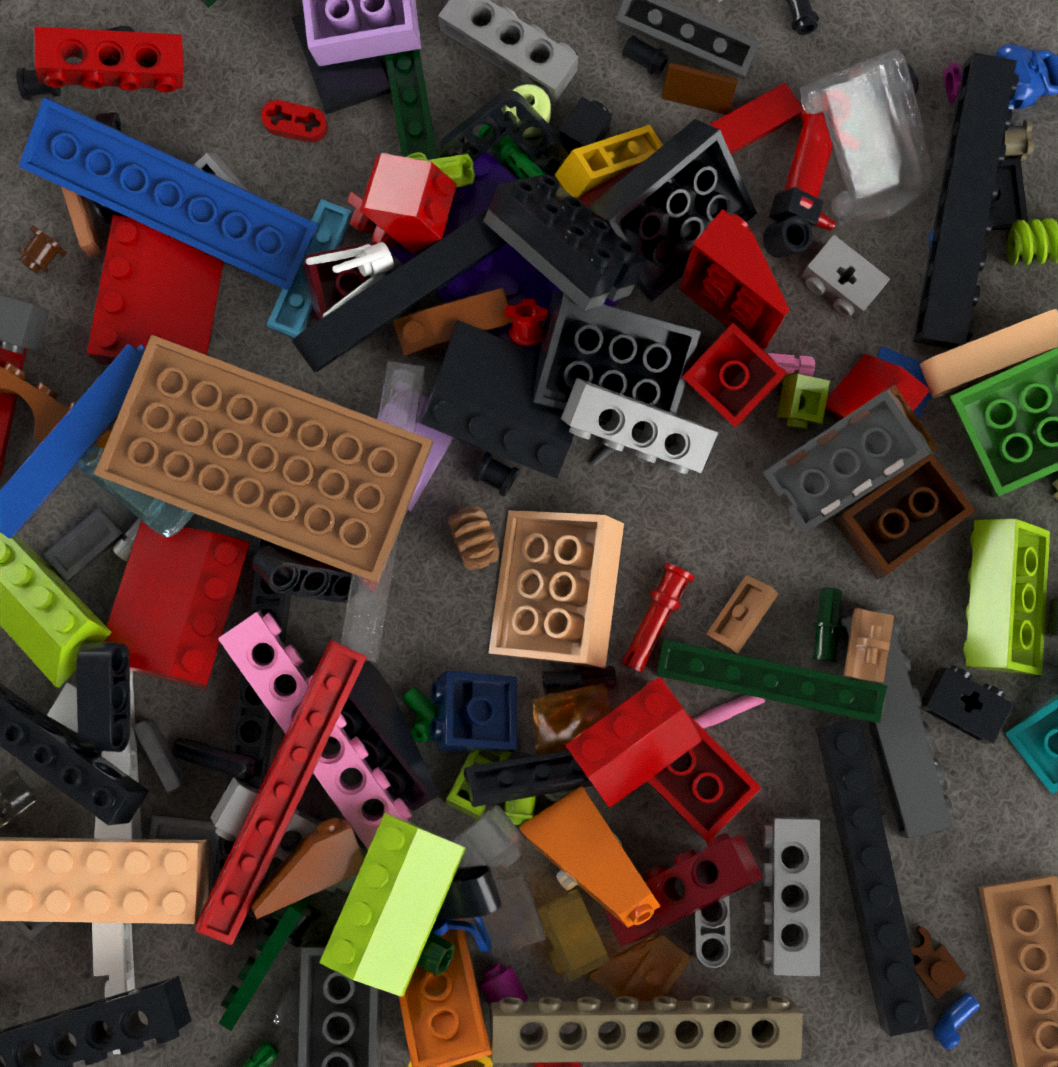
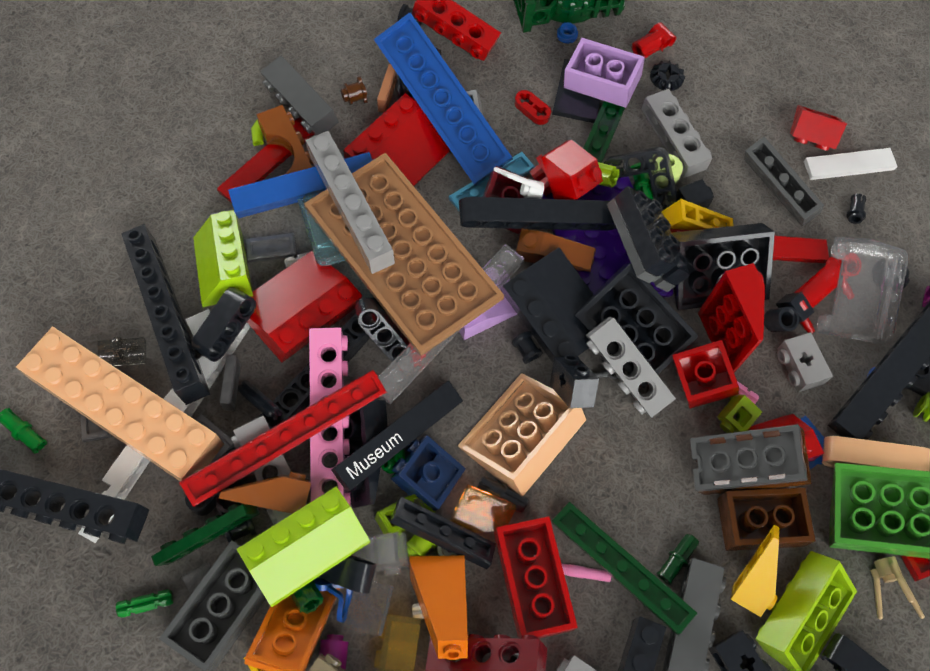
camera: 25 degrees right, 15 degrees down
(153, 439) = (350, 202): none -> light grey brick
(412, 694) = (396, 436): none -> black tile
(473, 538) = (491, 372): medium nougat gear -> none
(526, 322) = (597, 273): red brick -> none
(584, 493) = (574, 381): none -> black brick
(634, 742) = (514, 543): red slope -> none
(645, 55) = (752, 183): black pin -> none
(664, 601) = (581, 481): red pin -> none
(699, 88) = (773, 214): reddish brown slope -> none
(742, 614) = (627, 517): medium nougat plate -> none
(868, 645) = (699, 580): medium nougat hips -> none
(933, 601) = (757, 583): none -> yellow slope

